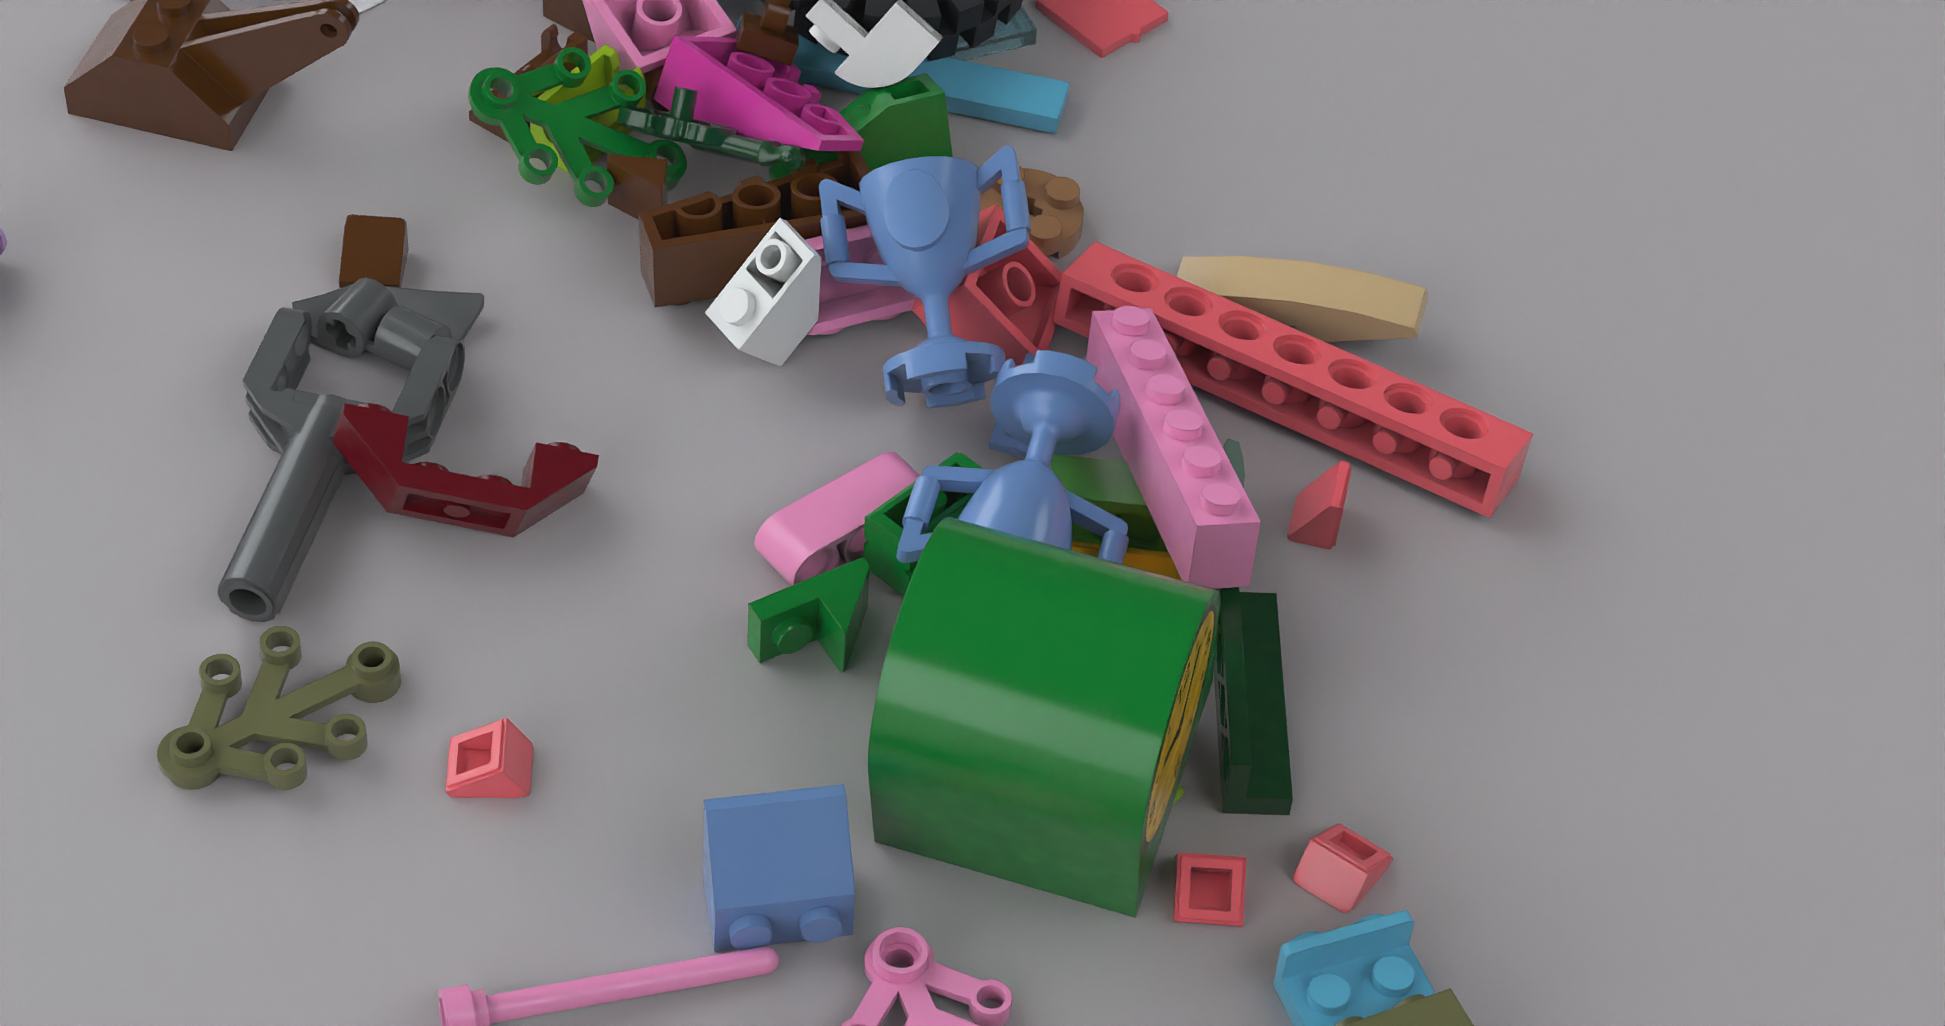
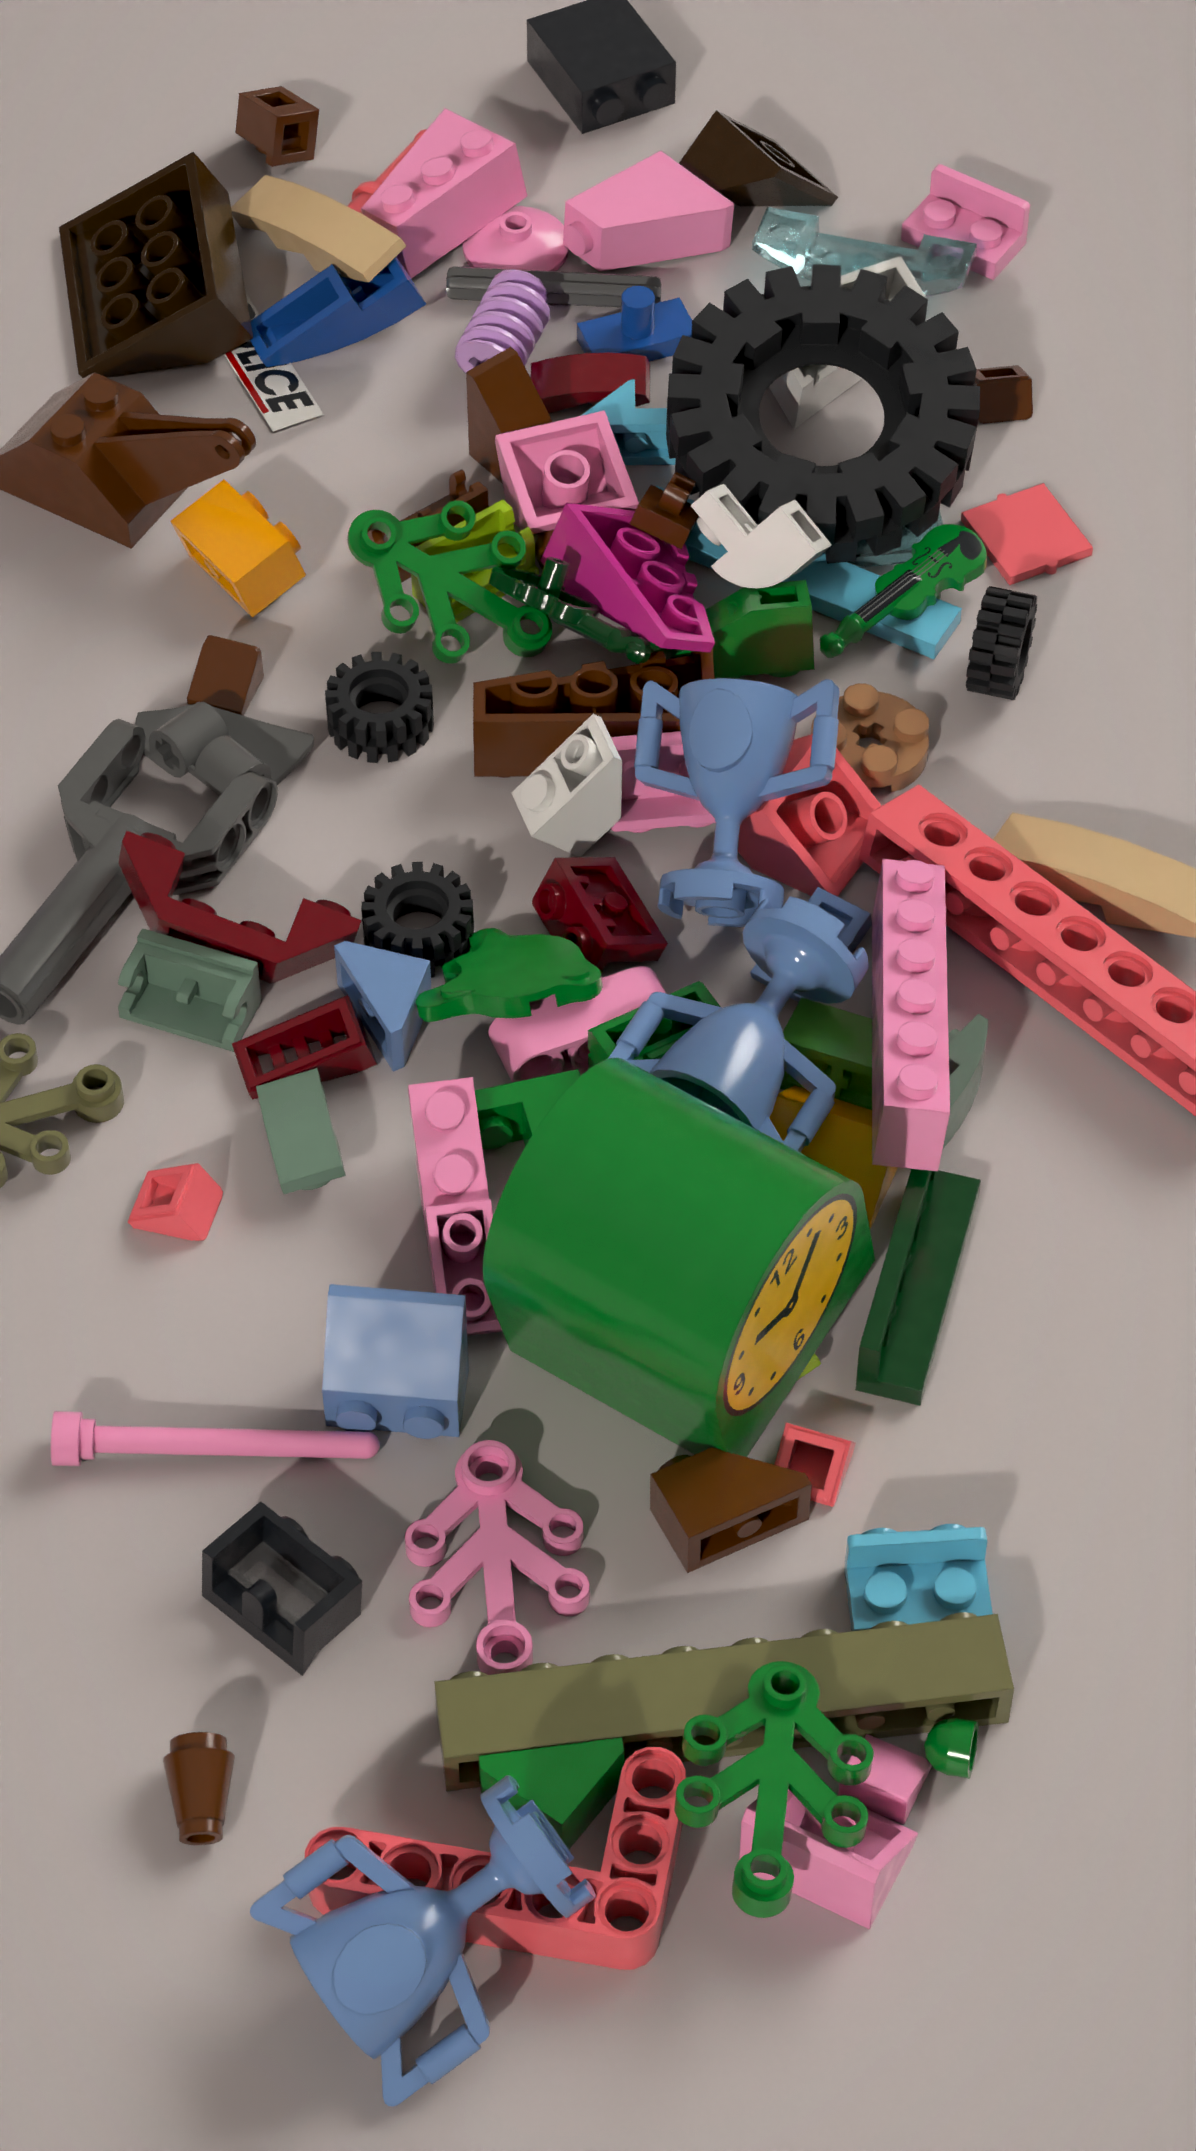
camera: 20 degrees right, 5 degrees up
(351, 129) = (240, 547): none -> light orange brick
(438, 554) = (189, 989): none -> sand green hinge
(543, 280) = (379, 731): none -> black tyre
(580, 565) = (316, 1025): none -> dark red slope
(599, 669) = (300, 1132): none -> sand green slope
(637, 524) = (384, 994): none -> medium blue slope
(638, 183) = (496, 647): reddish brown slope -> none
(647, 423) = (419, 893): none -> black tyre
(764, 483) = (507, 974): none -> green tile
(775, 698) = (454, 1193): none -> bright pink slope
(820, 417) = (597, 911): none -> dark red bracket
(1038, 41) = (940, 561): none -> green piece
(1125, 104) = (1001, 643): none -> black tyre
(1142, 942) = (724, 1503): none -> reddish brown slope
(1320, 508) = (1060, 1101): coral slope -> none
(1341, 867) = (950, 1468): coral slope -> none

